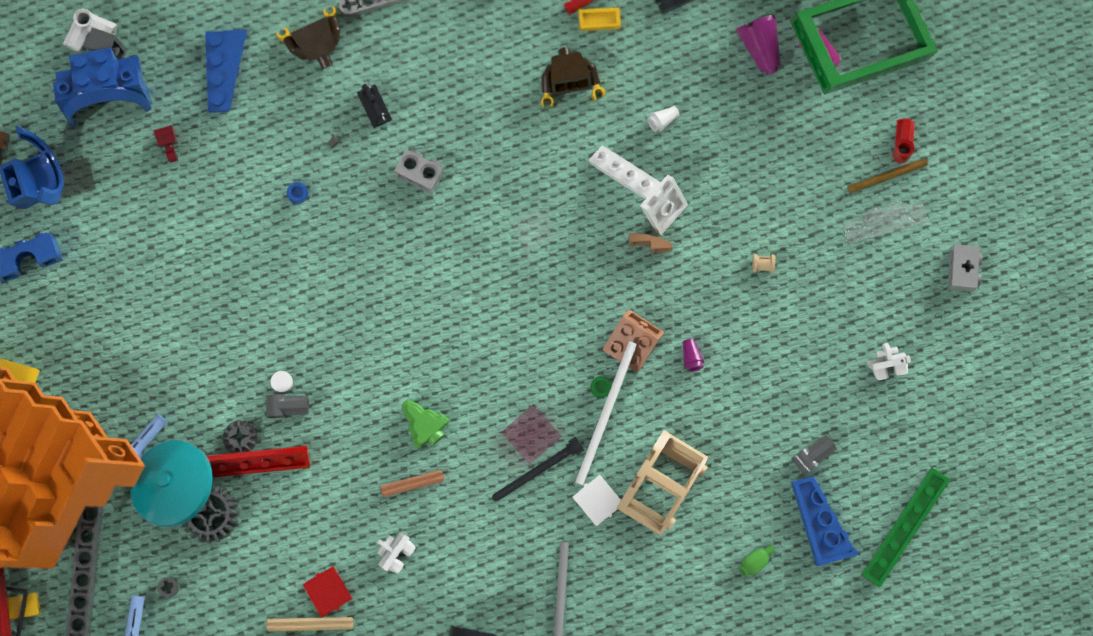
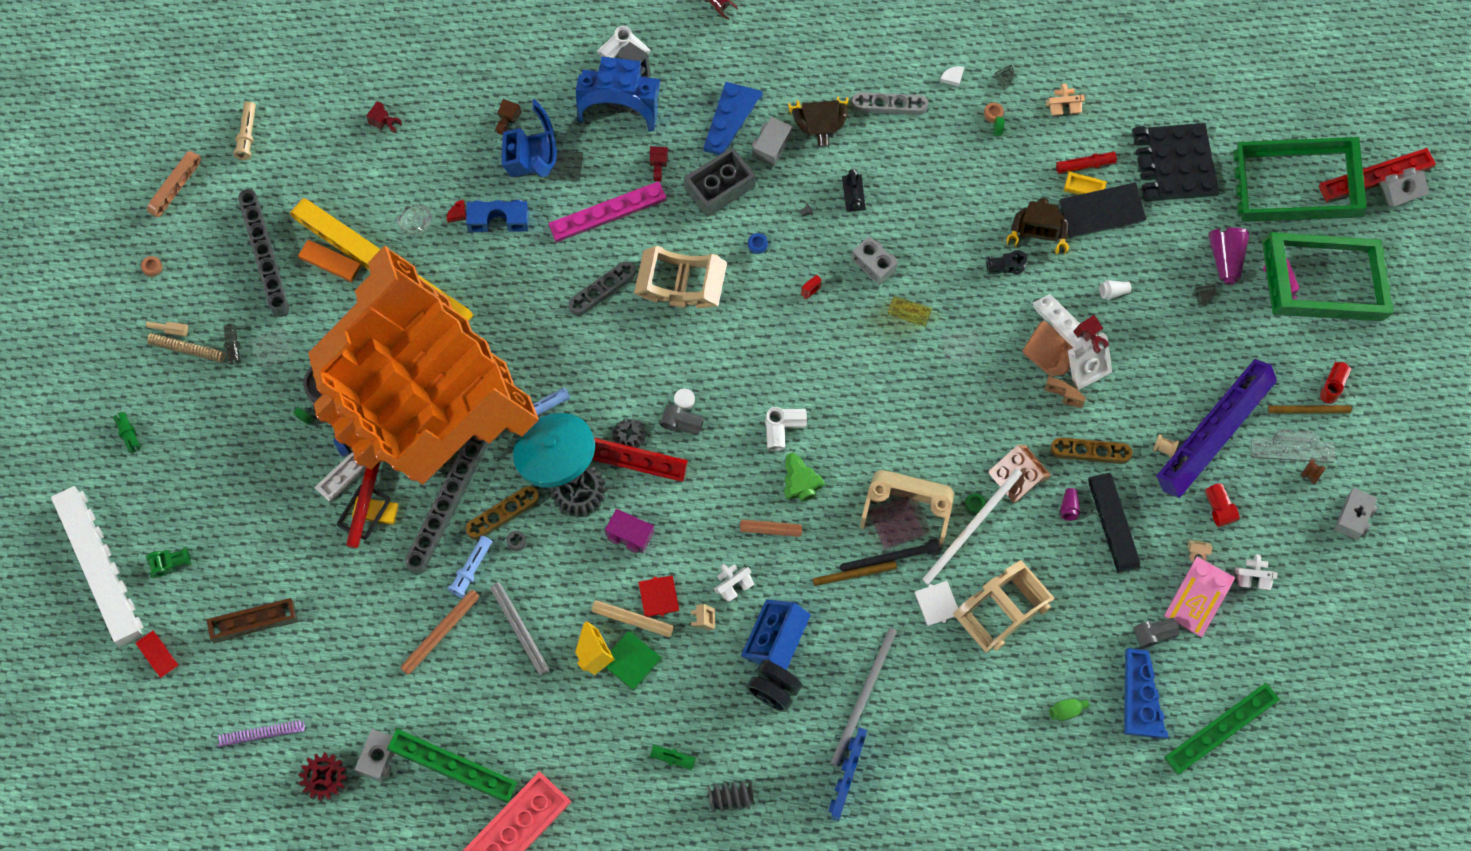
camera: 20 degrees right, 10 degrees down
(135, 212) = (607, 211): none -> dark pink plate
(141, 561) = (500, 509): none -> pearl gold beam
(162, 297) = (599, 286): none -> dark grey beam
(237, 143) = (719, 182): none -> dark grey brick
(266, 251) = (712, 283): none -> tan window
(274, 80) = (771, 141): none -> light grey brick
(275, 538) = (629, 531): none -> magenta brick
(366, 221) = (811, 287): none -> red tile
(379, 597) = (705, 617): none -> tan tile
(383, 384) = (788, 419): none -> white piece
(454, 590) = (776, 633): none -> blue slope
(471, 211) = (909, 311): none -> clear yellow slope
(508, 499) = (854, 573): none -> pearl gold piece
(509, 396) = (916, 489): none -> tan windscreen
(549, 128) = (1007, 263): none -> black connector
(620, 206) = (1048, 350): none -> nougat bracket
(624, 39) = (1102, 210): none -> black tile
(654, 179) = (1089, 330): none -> dark red piece
(692, 288) = (1091, 447): none -> pearl gold beam
(739, 359) = (1114, 522): none -> black beam
(751, 93) = (1204, 294): none -> clear smoke tile
(806, 229) = (1216, 428): none -> dark purple piece
(828, 355) = (1199, 547): none -> tan tile
(838, 309) = (1222, 509): none -> red piece
(843, 404) = (1199, 596): none -> bright pink slope
(910, 239) = (1312, 471): none -> reddish brown wheel

